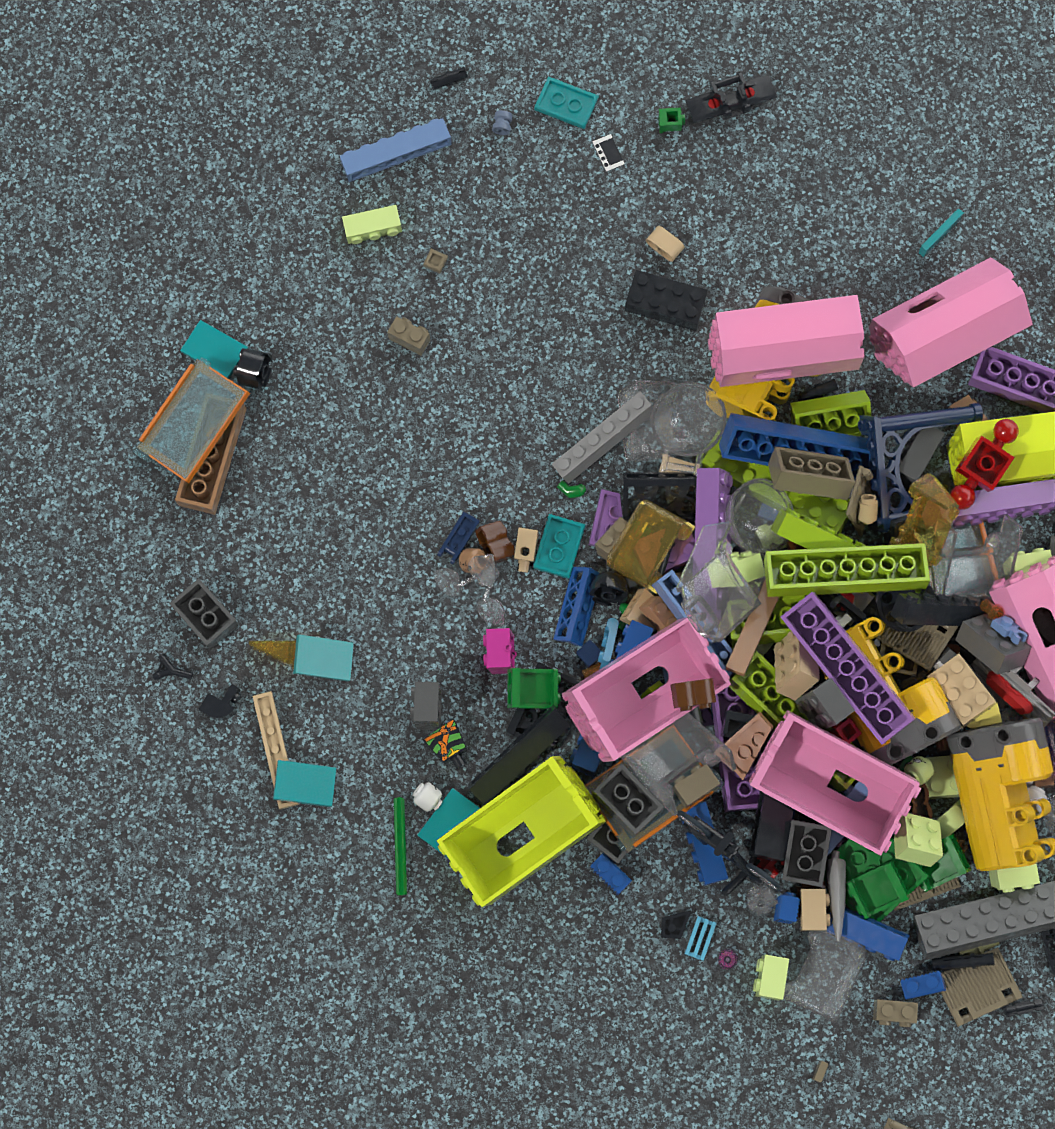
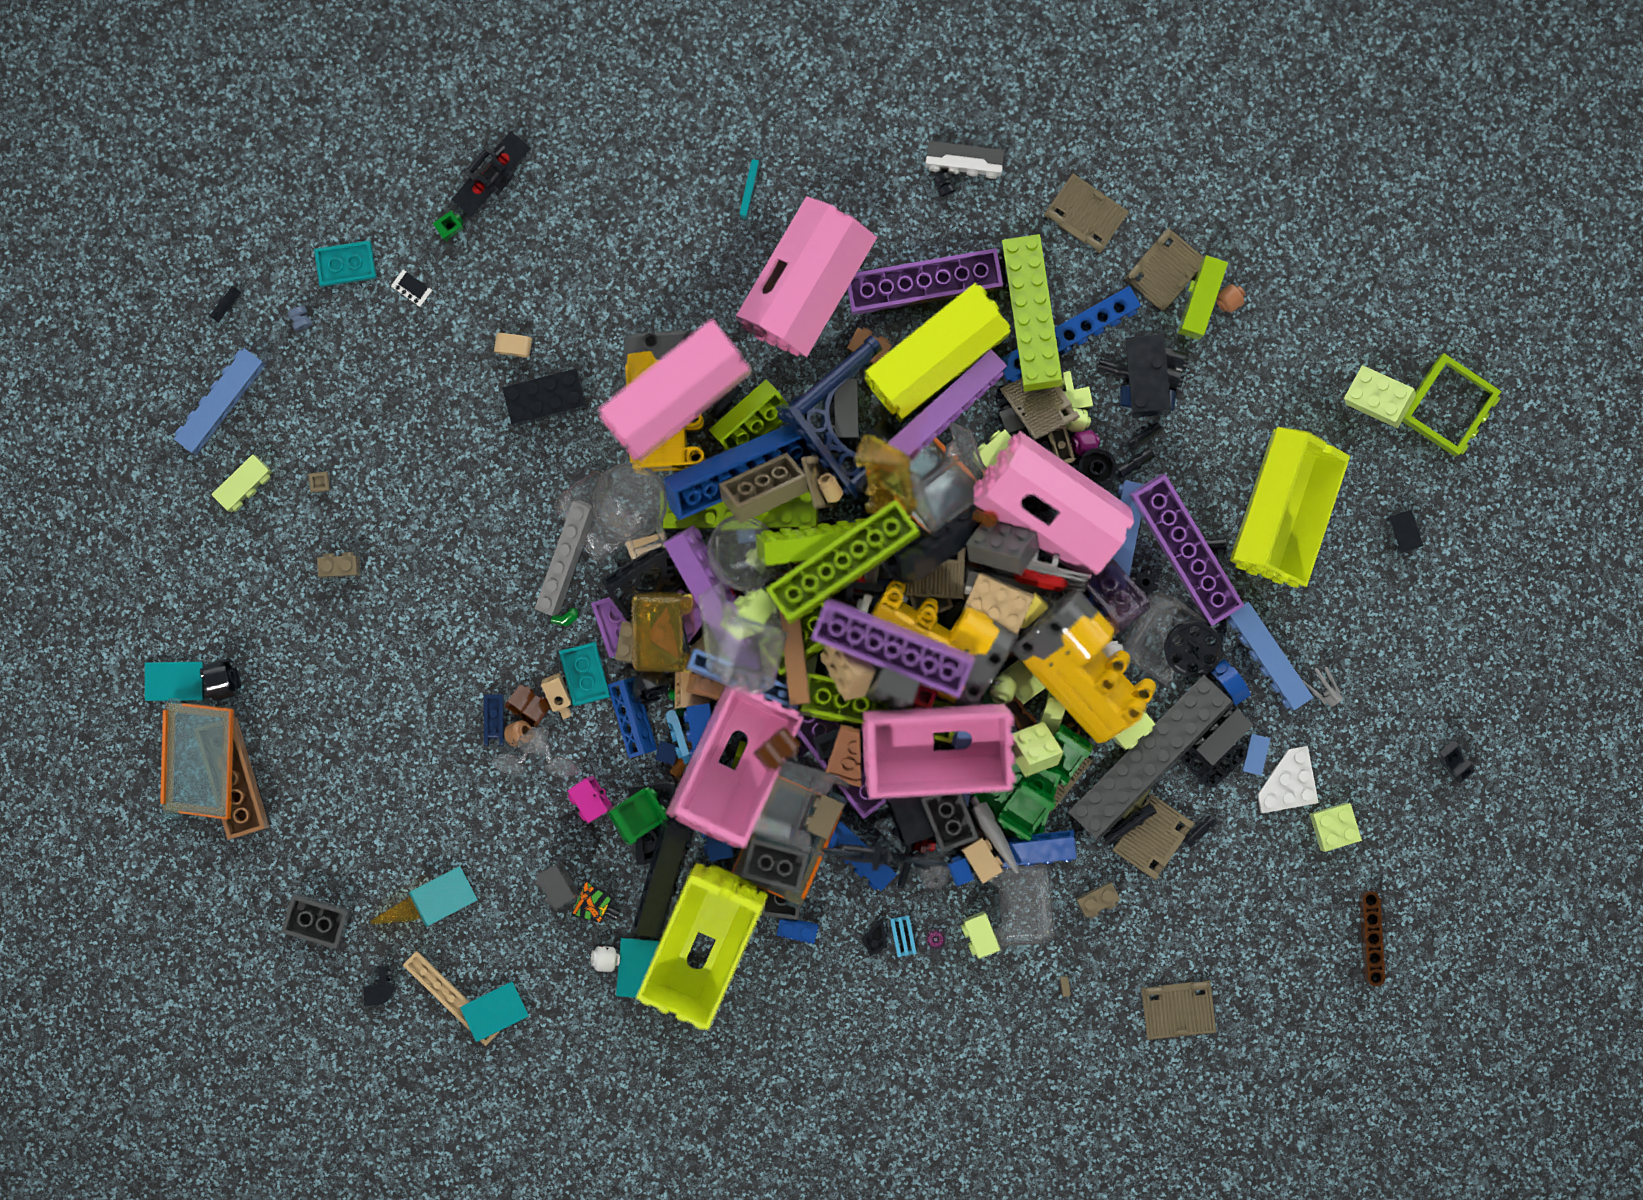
camera: 35 degrees left, 10 degrees up
(170, 670) = (318, 984): black piece -> none
(400, 846) = (607, 1013): green axle -> none
(923, 985) = (1108, 864): blue brick -> none
(985, 463) = (906, 397): red brick -> none
(1007, 627) = (1008, 527): medium blue plate -> none

